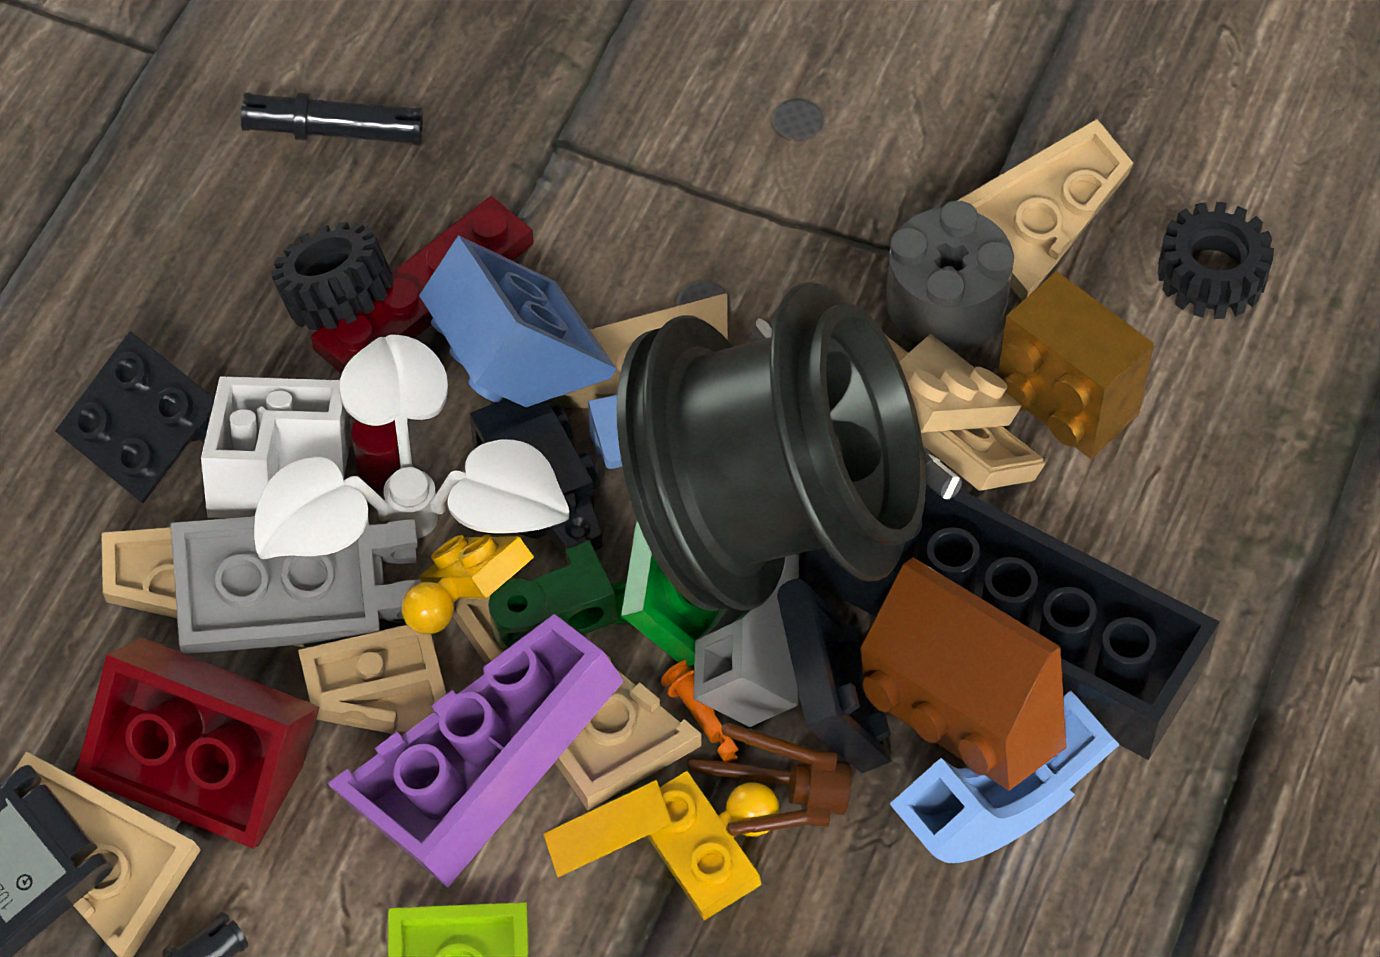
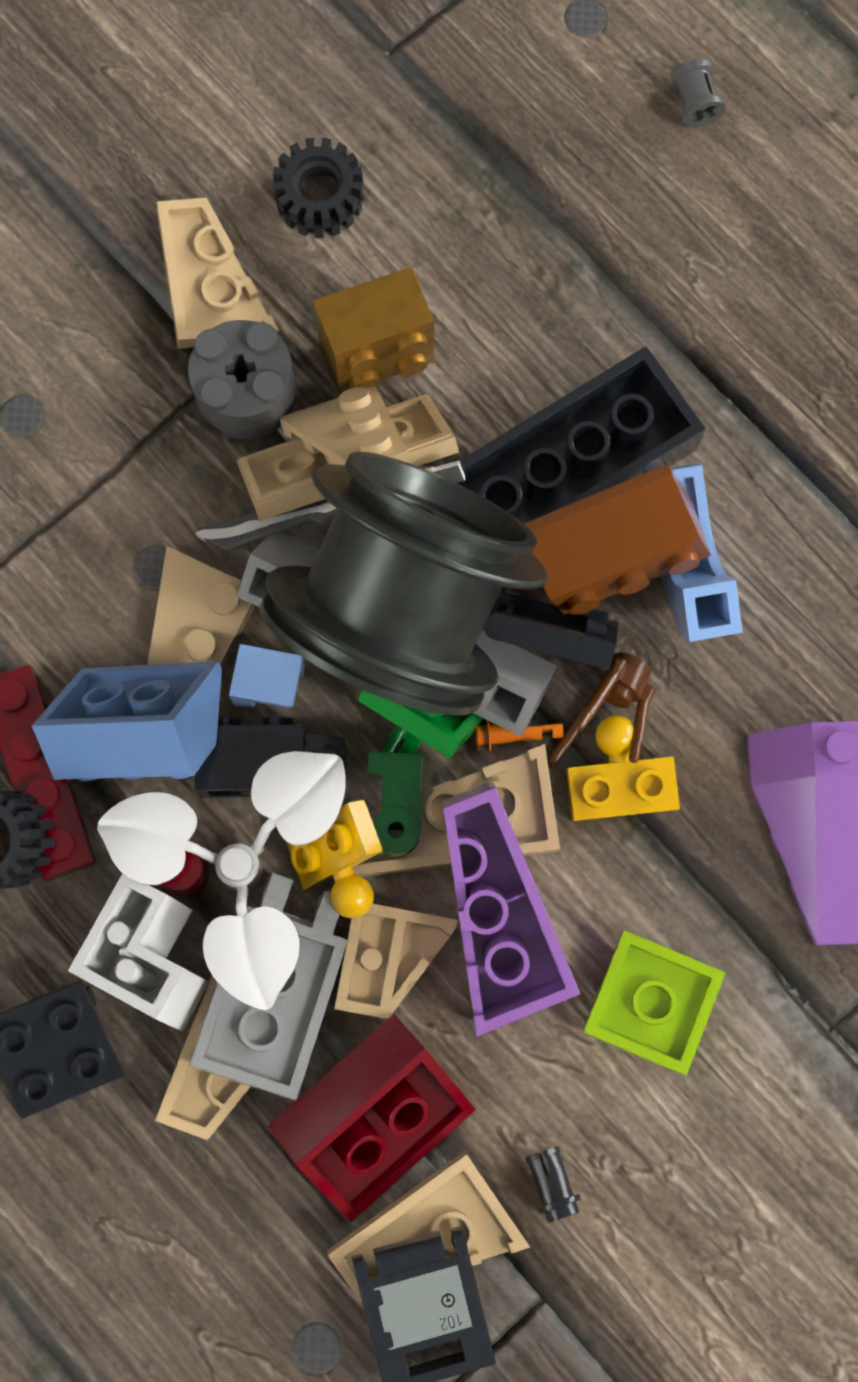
camera: 65 degrees left, 20 degrees up
(607, 828) = (584, 845): yellow sticker -> none

